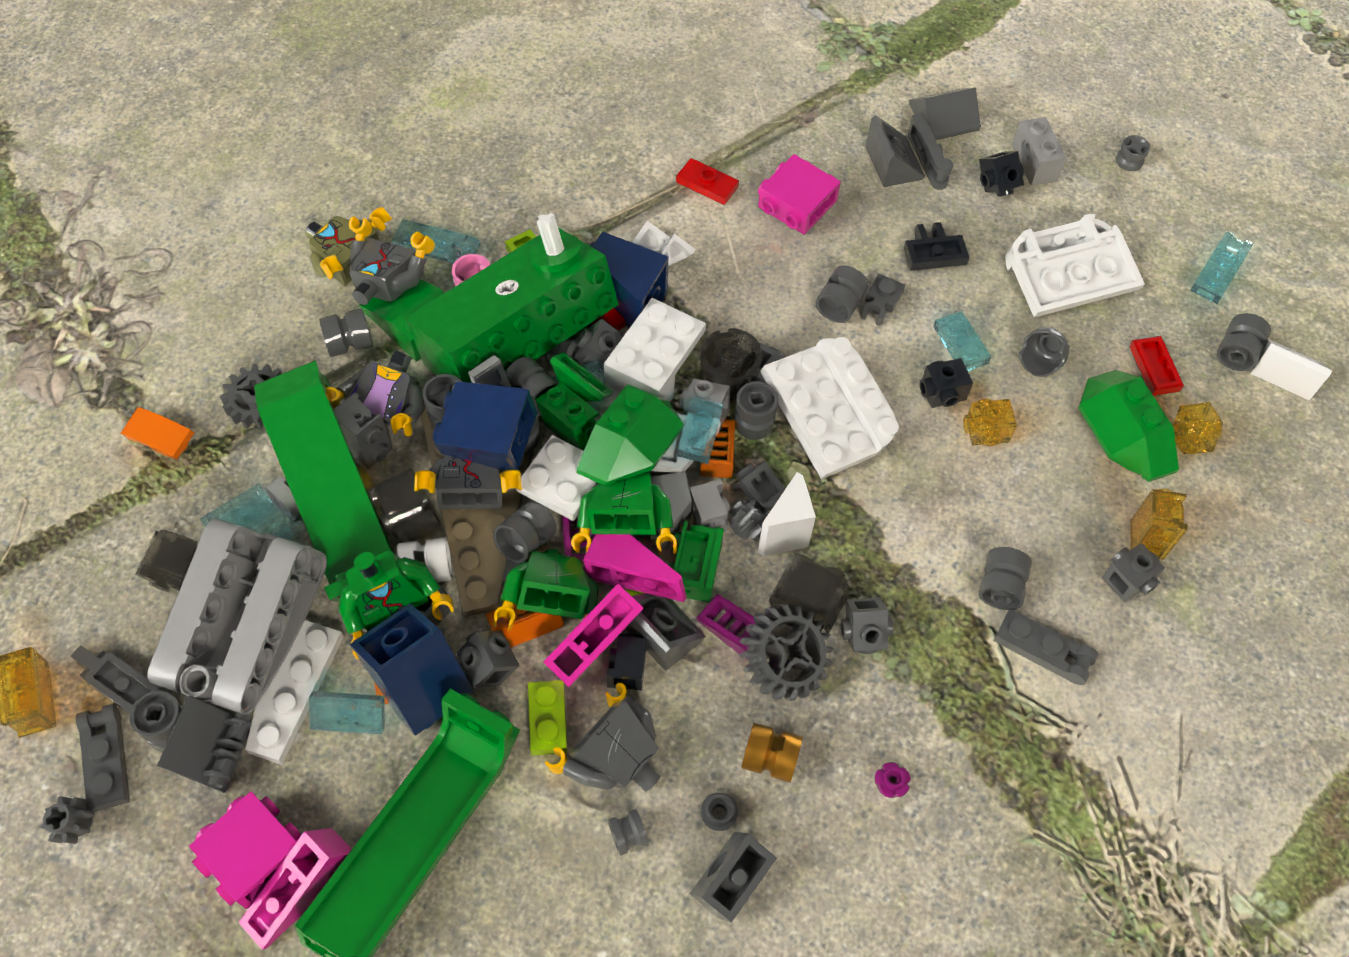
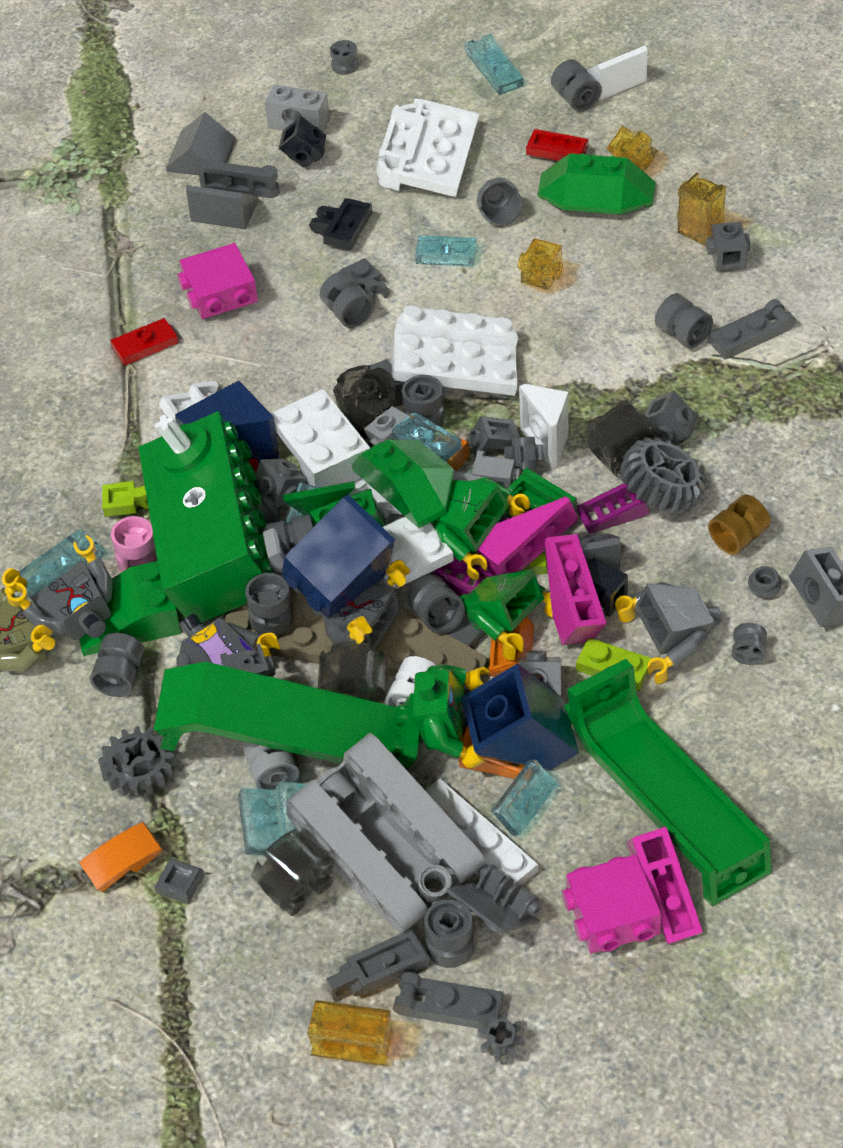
camera: 55 degrees left, 10 degrees down
(156, 487) = (179, 881): none -> dark grey tile
(889, 789) = (803, 468): magenta plate -> none
(946, 383) = (485, 273): black brick -> none

